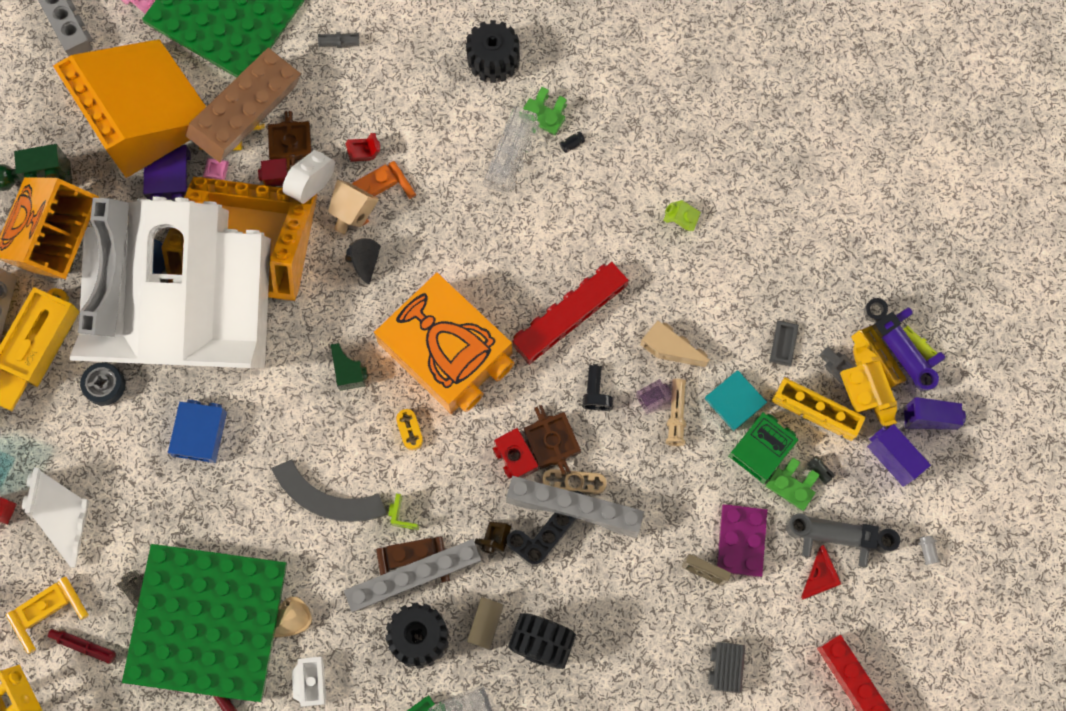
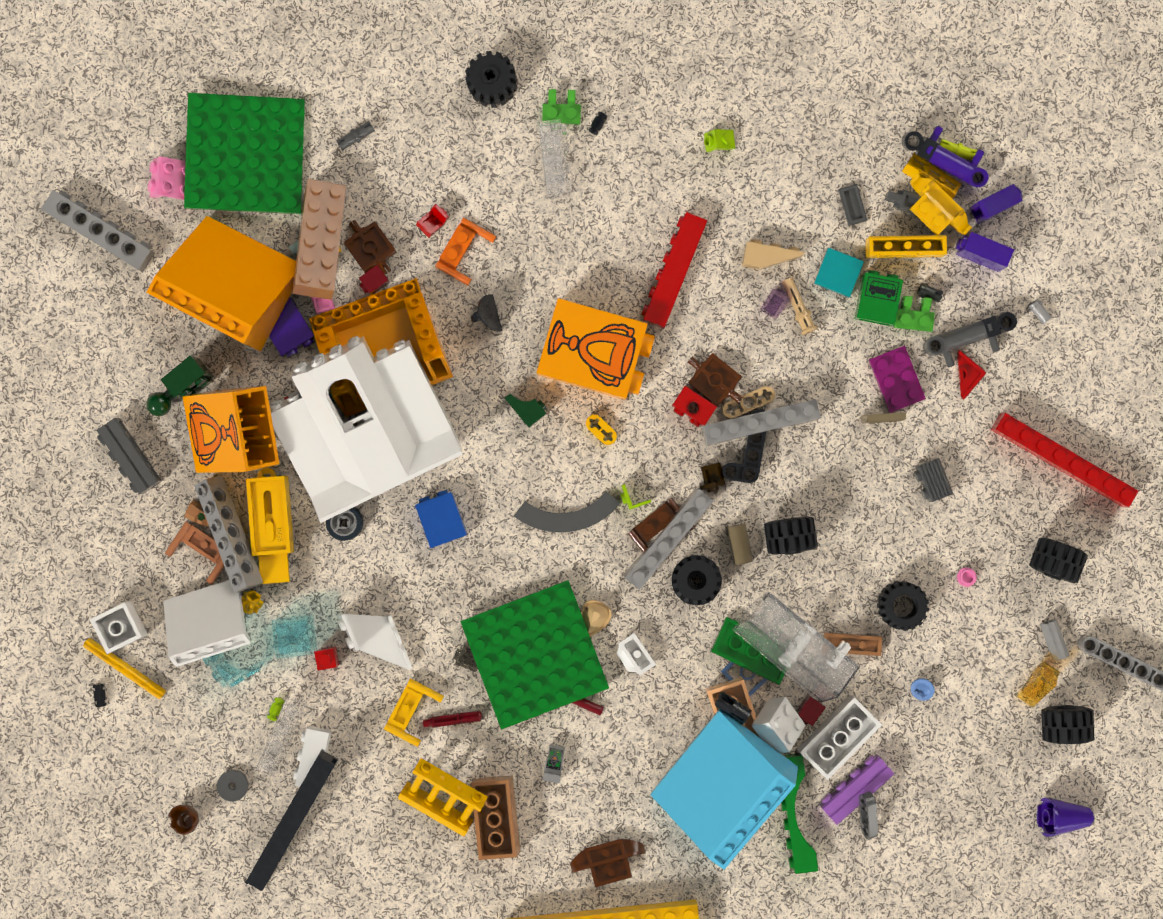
camera: 25 degrees left, 15 degrees up
(110, 225) = (291, 405): light grey arch -> none
(308, 176) = (406, 271): white brick -> none
(350, 205) = (452, 276): tan torso -> none
(593, 399) = (728, 330): black piece -> none

